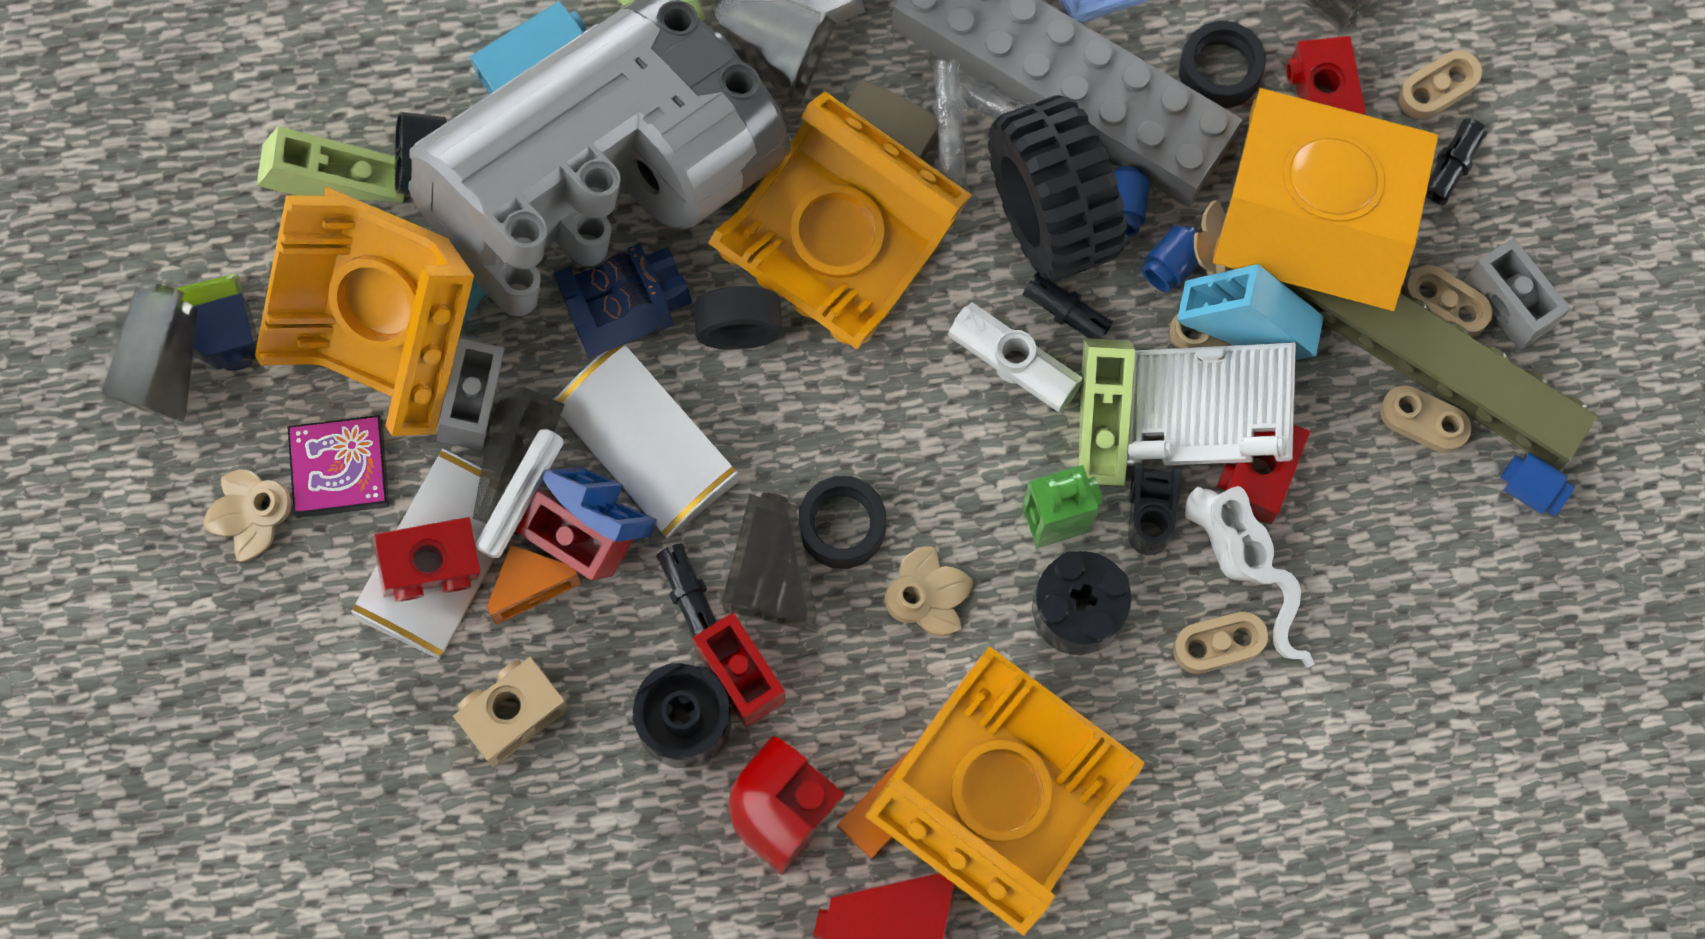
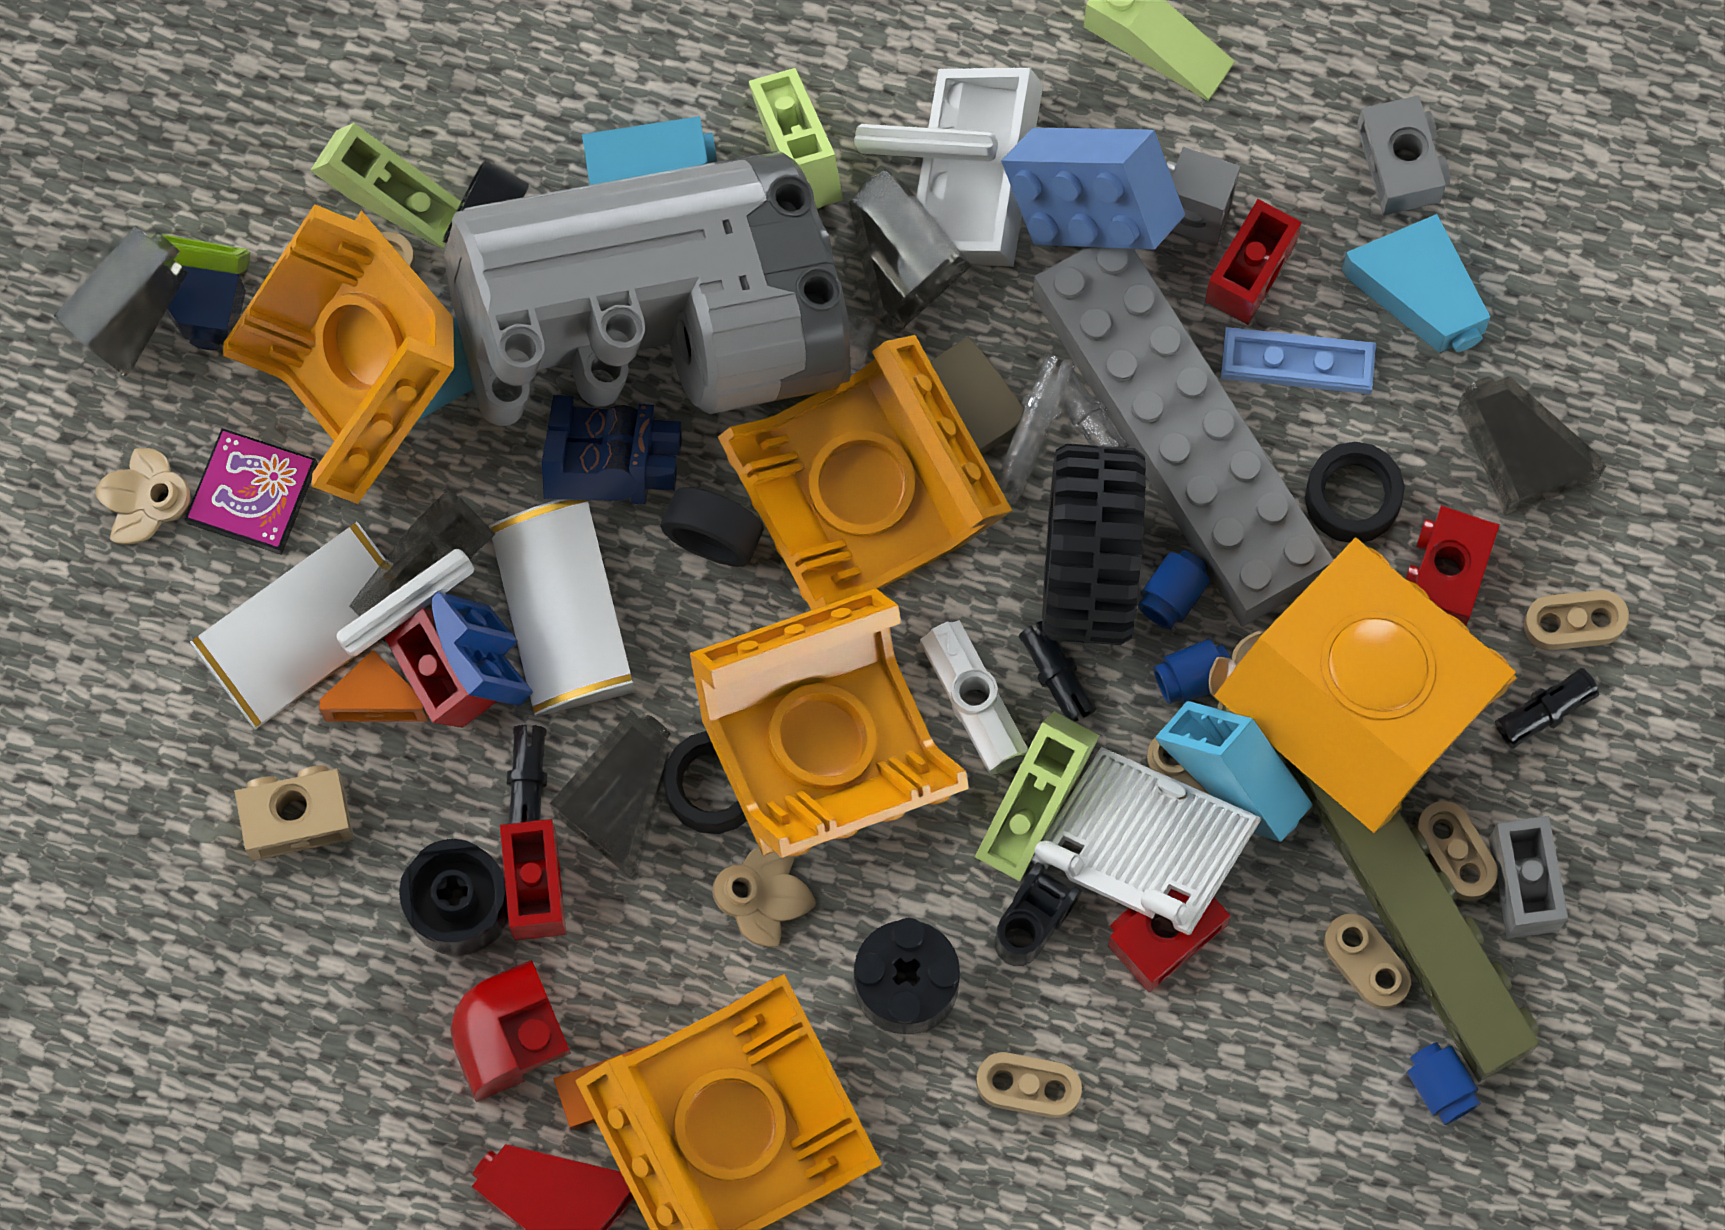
camera: 30 degrees right, 0 degrees up
(449, 539) = (262, 602): red brick -> none
(470, 394) = (410, 480): light grey brick -> none
(909, 436) = (820, 726): none -> light orange panel
(1061, 505) = (935, 870): bright green brick -> none
(1246, 554) = (1100, 1010): white animal -> none

